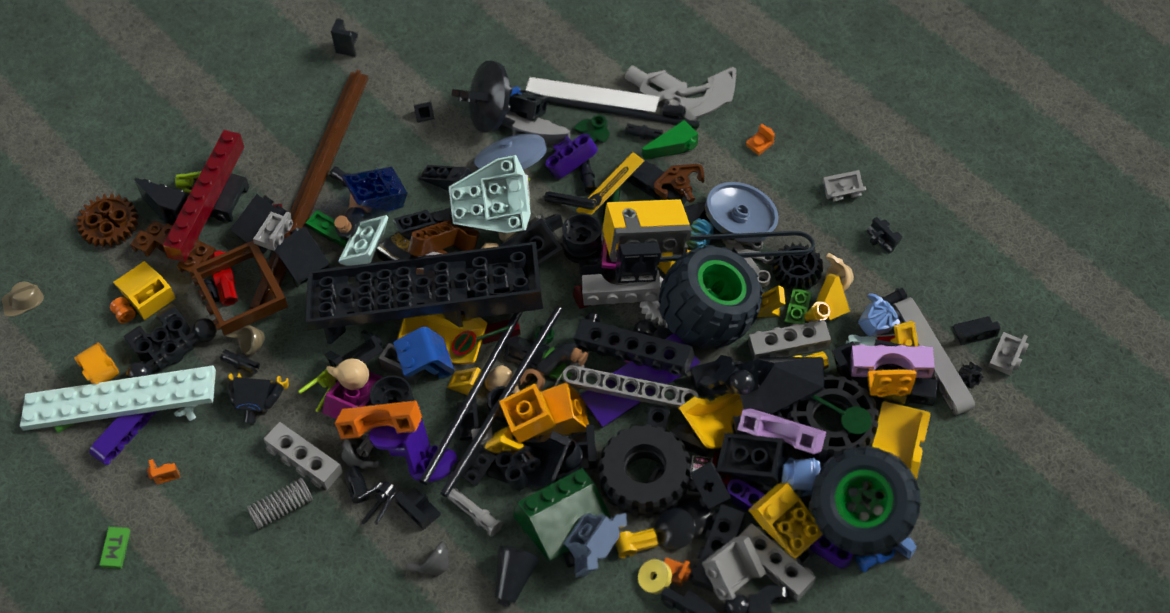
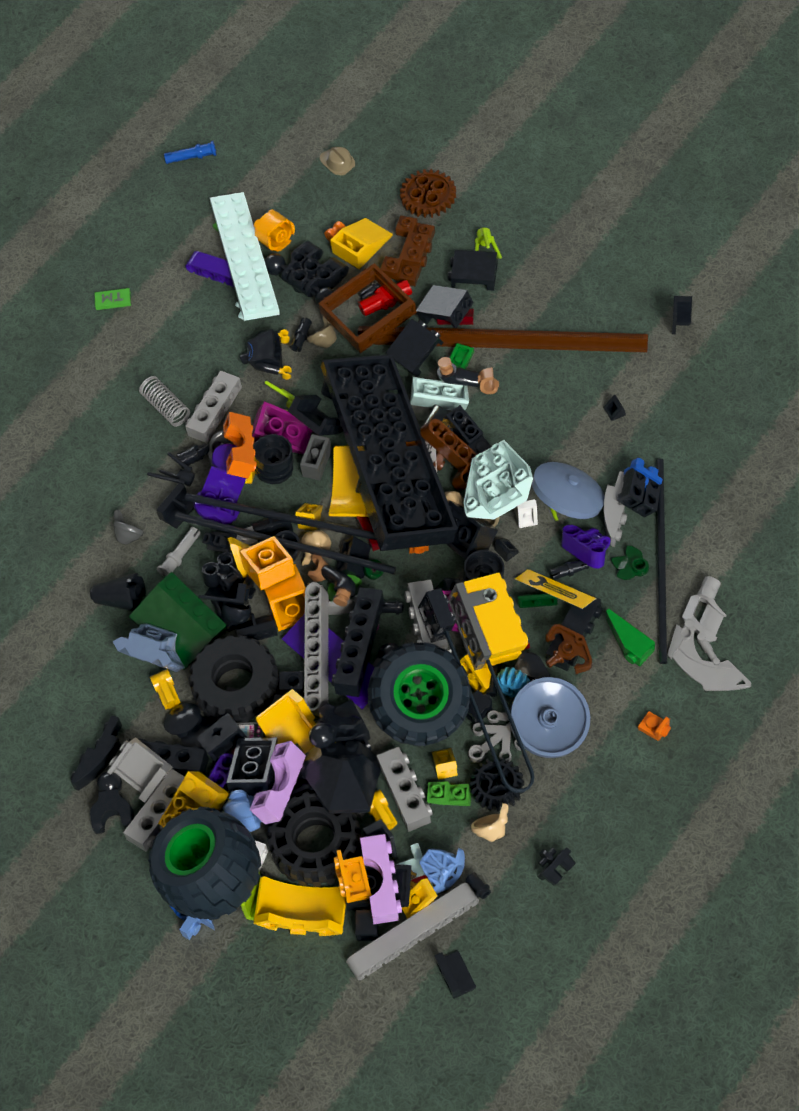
camera: 85 degrees right, 0 degrees up
(162, 199) = (449, 227): black slope -> none
(162, 474) = (182, 307): orange bracket -> none
(203, 196) = (458, 251): dark red brick -> none
(273, 230) = (425, 313): light grey bracket -> none
(337, 174) = (517, 362): black pin -> none
(350, 373) = (289, 415): tan hat -> none
(377, 189) = (499, 384): clear blue slope -> none
(422, 351) = (323, 470): blue piece -> none
(444, 175) = (536, 446): black slope -> none
(467, 340) = (350, 504): piece -> none
(487, 96) = (627, 445): black bracket -> none
(570, 200) = (532, 558): black axle -> none
(593, 94) = (676, 554): white sticker -> none
(642, 131) = (638, 610): black pin -> none
(647, 572) = (132, 710): light yellow piece -> none
(674, 110) = (670, 636): black pin -> none
(679, 571) = (141, 727): orange bracket -> none
(818, 312) = (428, 806): yellow cone -> none
(834, 296) = (456, 821): yellow slope -> none
(843, 185) = (610, 816): light grey bracket -> none
(854, 419) = (307, 852): dark green piece -> none
(971, 374) = (393, 970): black gear -> none
(1007, 353) = (429, 1008): light grey bracket -> none

